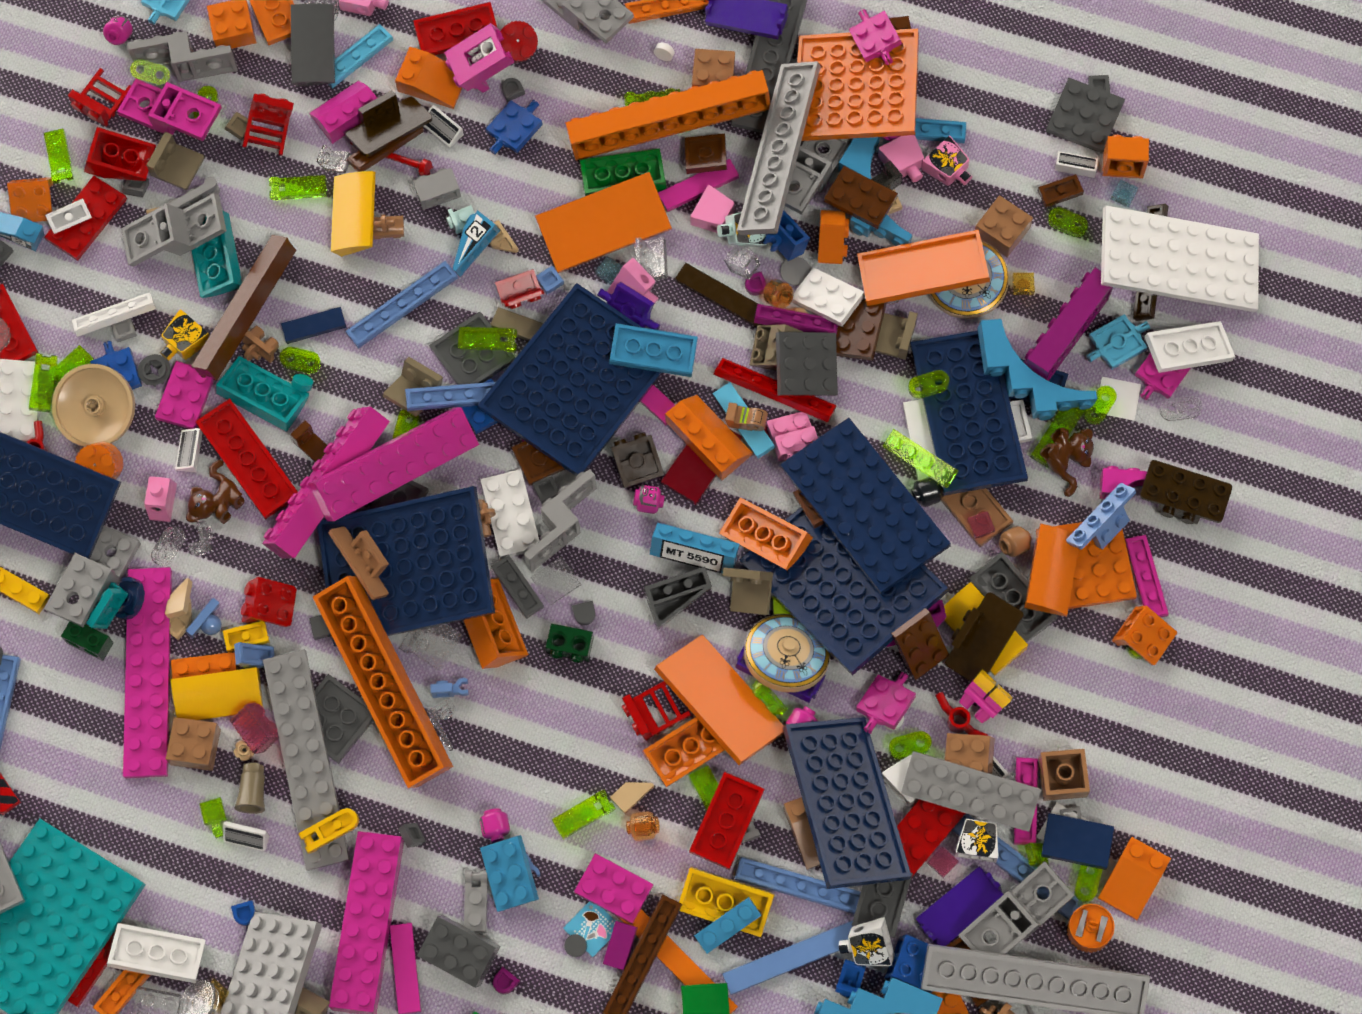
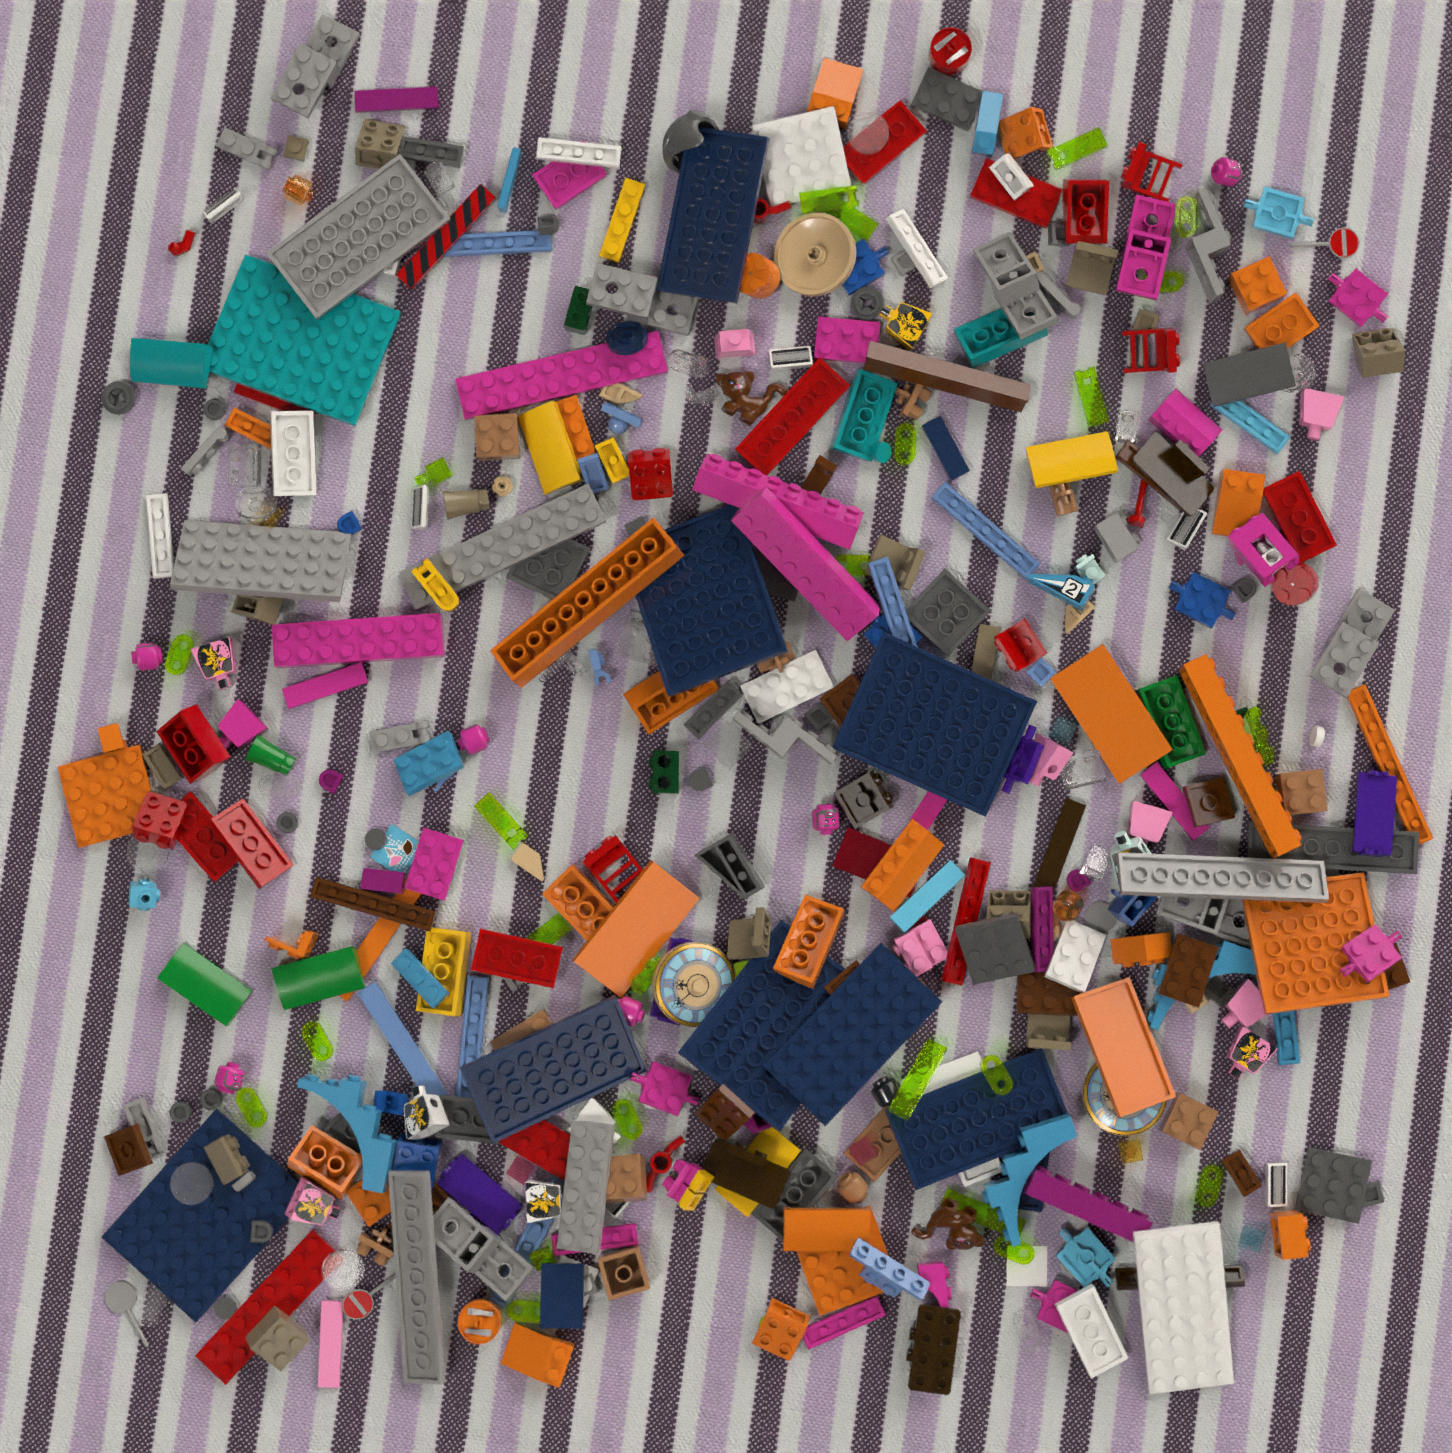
camera: 75 degrees right, 15 degrees up
(107, 607) = (612, 321): teal bracket -> none
(179, 600) = (636, 387): tan tile -> none
(255, 728) = (523, 491): clear pink brick -> none
(363, 558) = (701, 556): medium nougat bracket -> none
(412, 835) = (449, 663): dark grey tile -> none
(458, 951) = (347, 732): dark grey brick -> none
(487, 338) = (960, 624): clear neon green plate -> none
(643, 826) = (499, 879): clear orange head -> none
(653, 350) = (980, 793): dark azure tile -> none
(693, 548) = (782, 873): brick -> none
(745, 417) = (926, 899): medium nougat leg -> none

